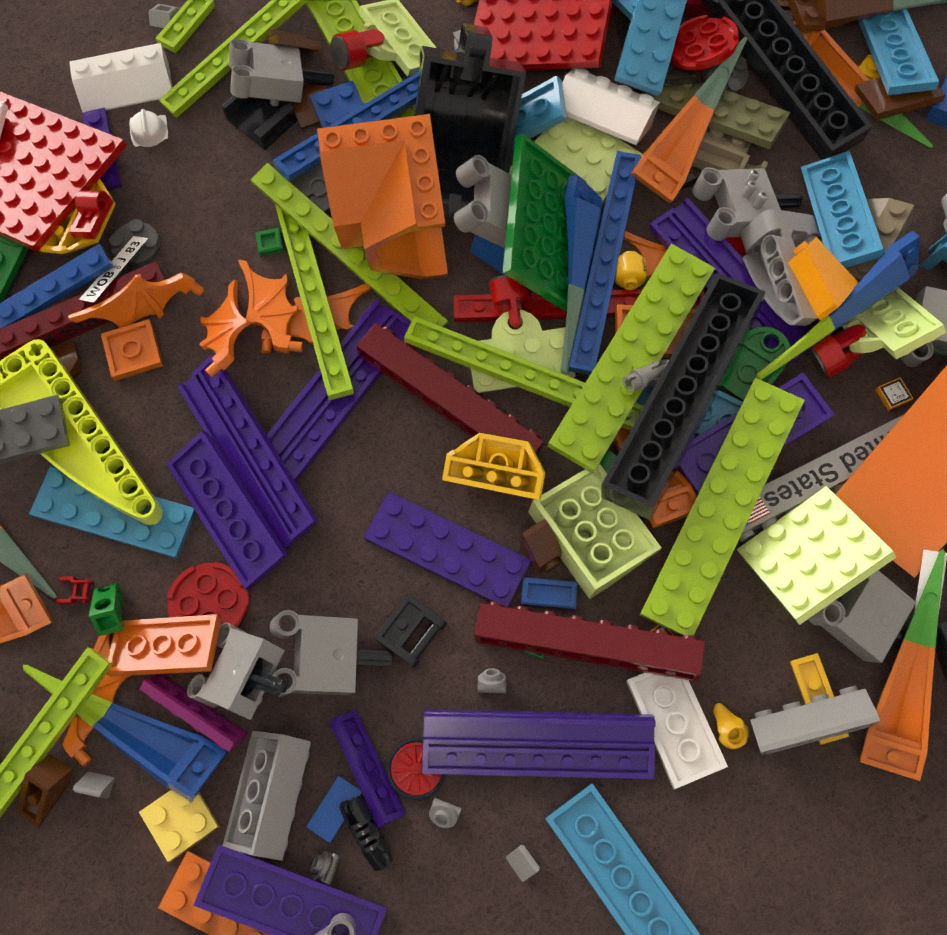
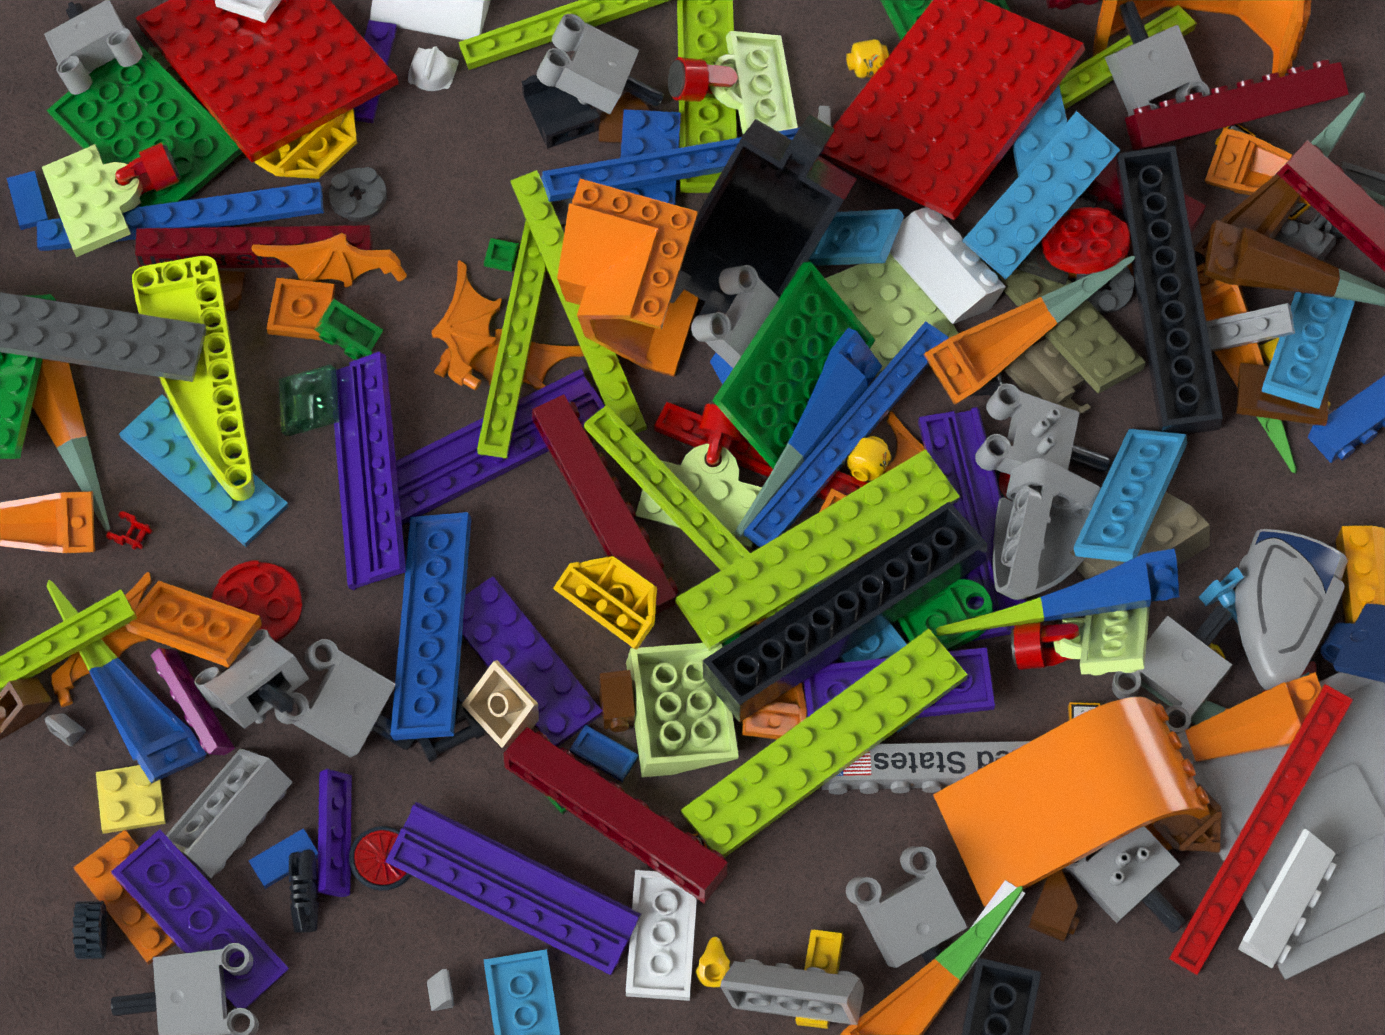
camera: 20 degrees right, 5 degrees down
(93, 210) = (328, 144): red plate -> none
(107, 609) = (154, 564): green leg -> none
(119, 262) = (330, 209): white sticker -> none
(172, 418) = (308, 400): none -> clear green plate
(177, 349) = (348, 330): none -> green bracket
(223, 330) = (404, 330): orange animal -> none
(226, 510) = (318, 518): dark purple plate -> none
(293, 40) = (636, 37): reddish brown slope -> none
(325, 867) = (249, 905): flat silver plate -> none
(362, 558) = (431, 627): none -> blue plate
(444, 813) = (388, 912): light grey plate -> none
(452, 595) = (501, 705): none -> tan slope
(492, 681) = (499, 811): light grey plate -> none
(641, 377) = (808, 574): light grey pin -> none
(815, 554) = (885, 829): yellowish green plate -> none
(821, 277) = (1054, 554): light orange slope -> none
(855, 51) = (1250, 327): none -> light grey plate

